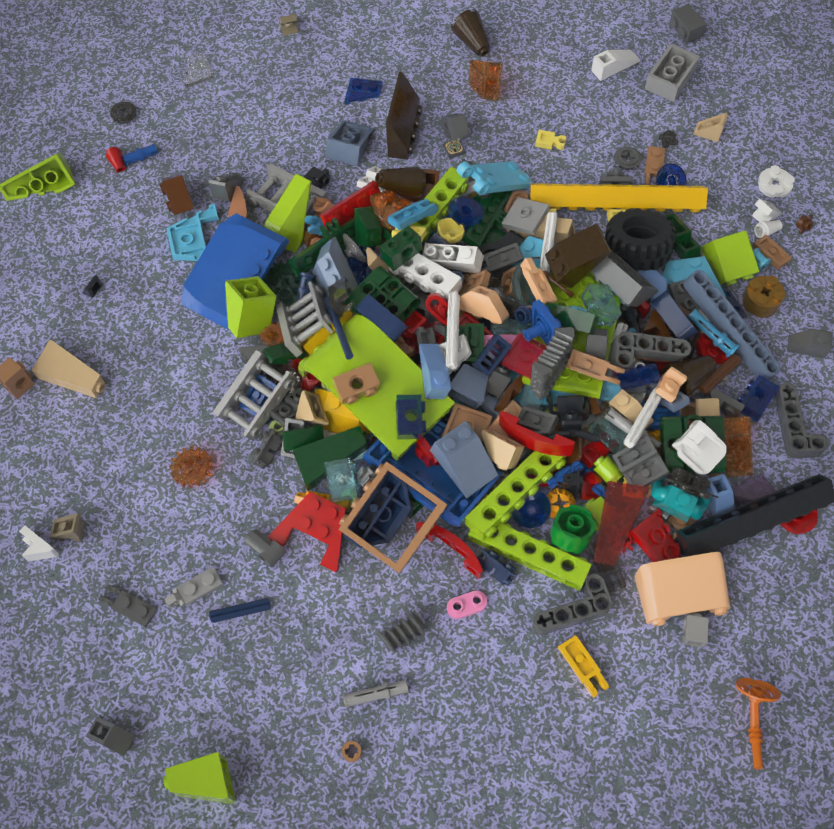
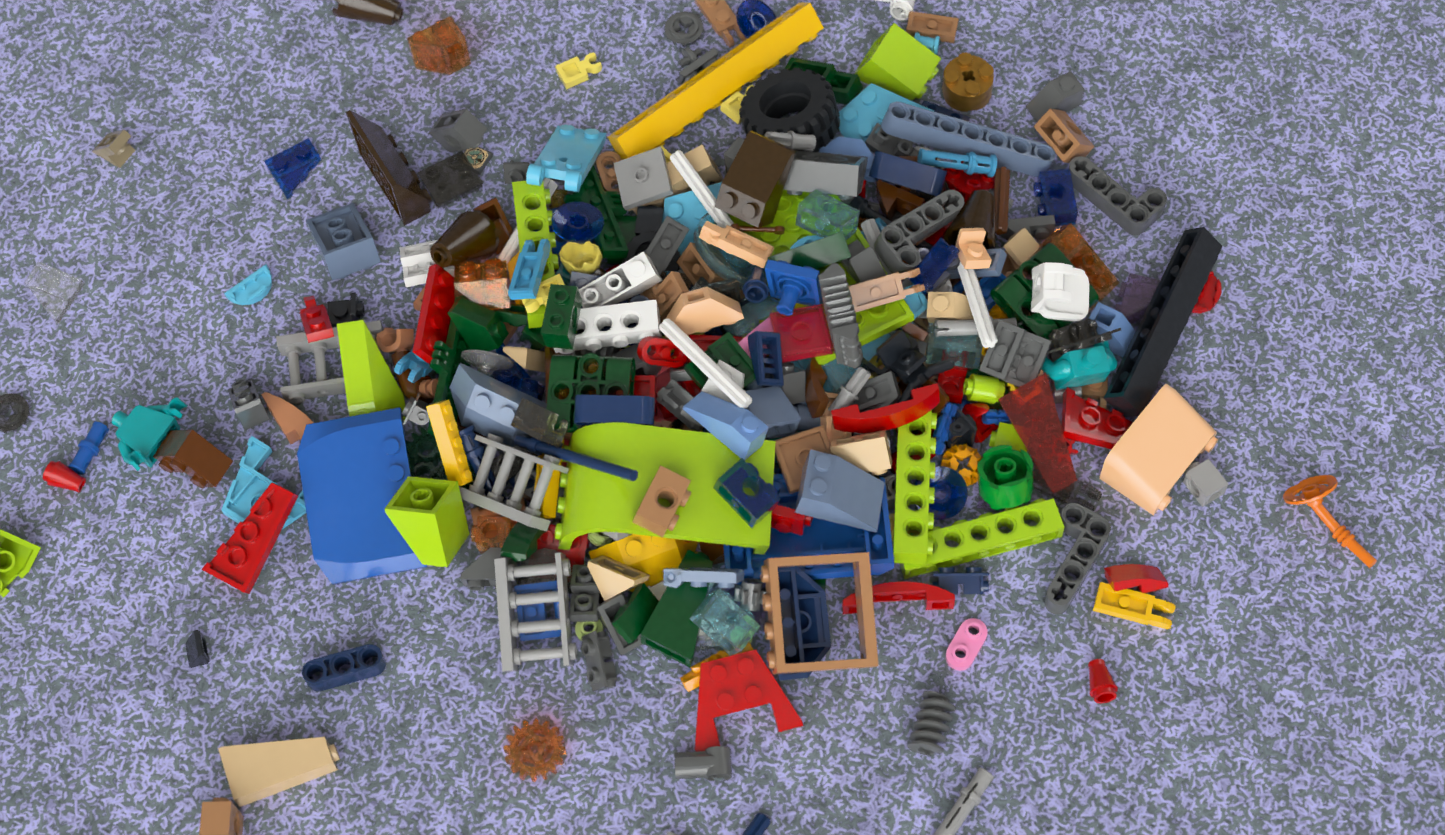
camera: 40 degrees left, 0 degrees up
(138, 346) = (331, 663): none -> dark blue beam
(156, 257) = (246, 551): none -> red wing
(169, 163) = (145, 430): none -> teal torso
(286, 134) = (252, 288): none -> medium azure plate
(293, 275) = (449, 442): none -> yellow piece
(295, 167) = (315, 321): none -> red hinge
(295, 246) = (416, 411): none -> hinge
(350, 445) = (701, 576): none -> hinge
(430, 149) = (450, 179): none -> clear smoke hinge
(522, 692) = (1101, 682): none -> red cone
(524, 410) = (850, 391): none -> light grey axle
(605, 653) = (1145, 577): none -> red slope
(621, 250) = (793, 140): none -> light grey axle
(794, 365) = (1063, 135): none -> medium nougat brick

